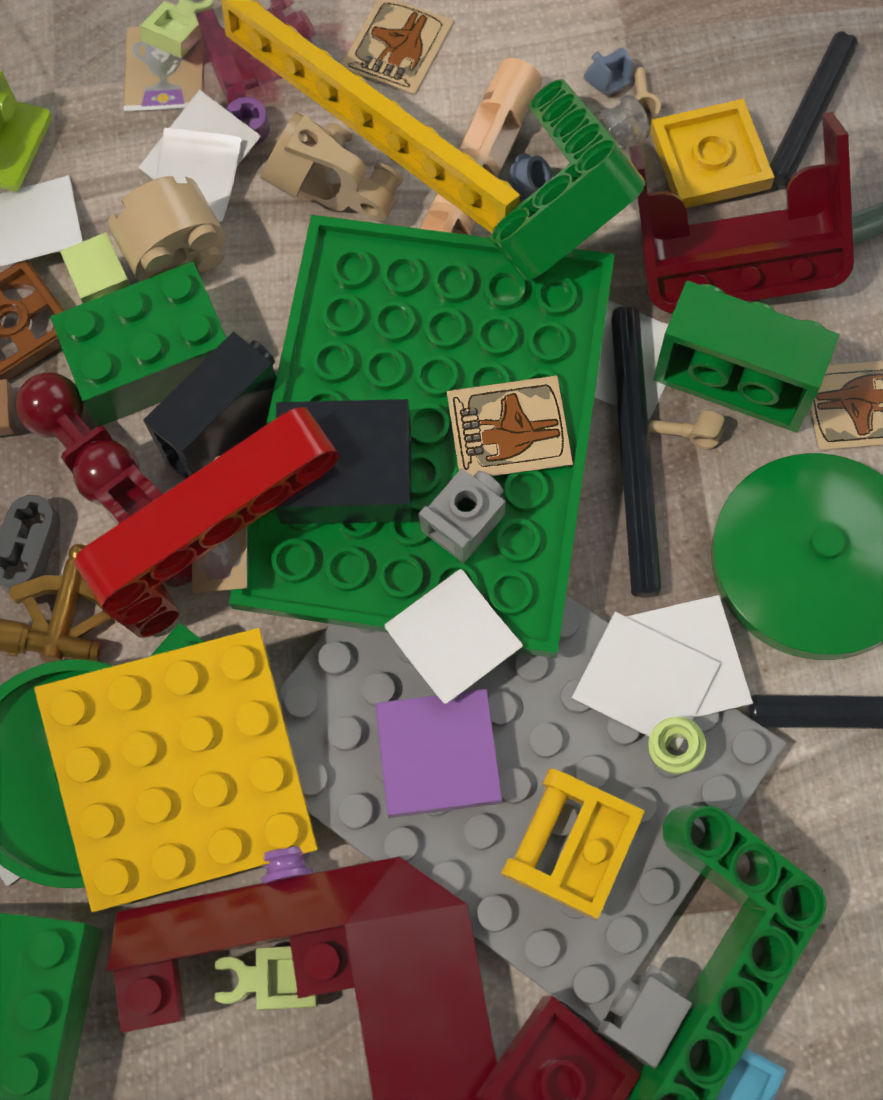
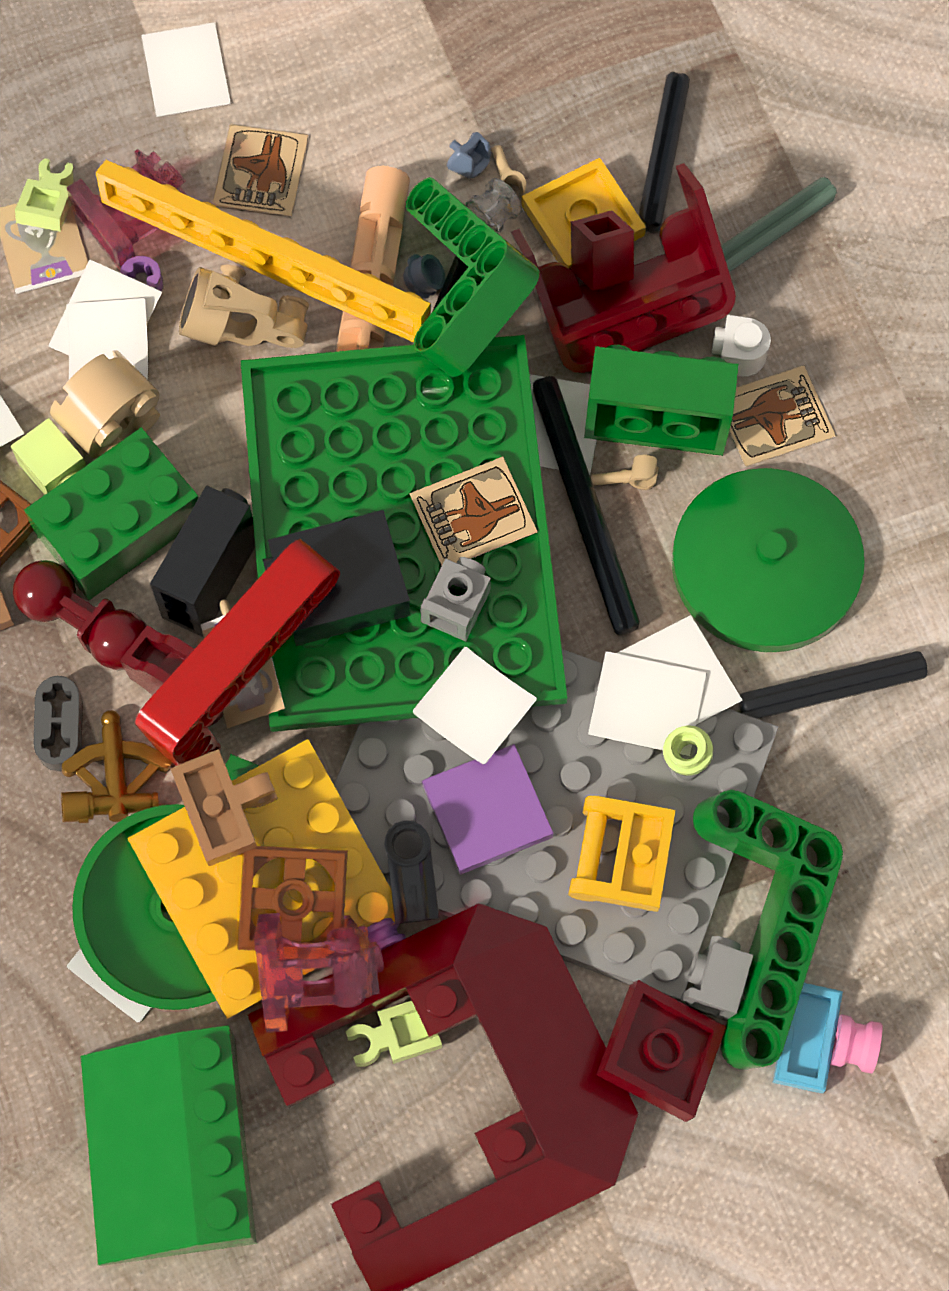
camera: 20 degrees left, 0 degrees up
(132, 678) = (218, 806): none -> medium nougat plate
(137, 833) = (294, 878): none -> dark orange piece
(151, 870) = (281, 964): none -> clear pink tile
(332, 811) = (411, 879): none -> black piece
(721, 188) = (602, 250): none -> dark red brick
(851, 316) = (742, 343): none -> white plate

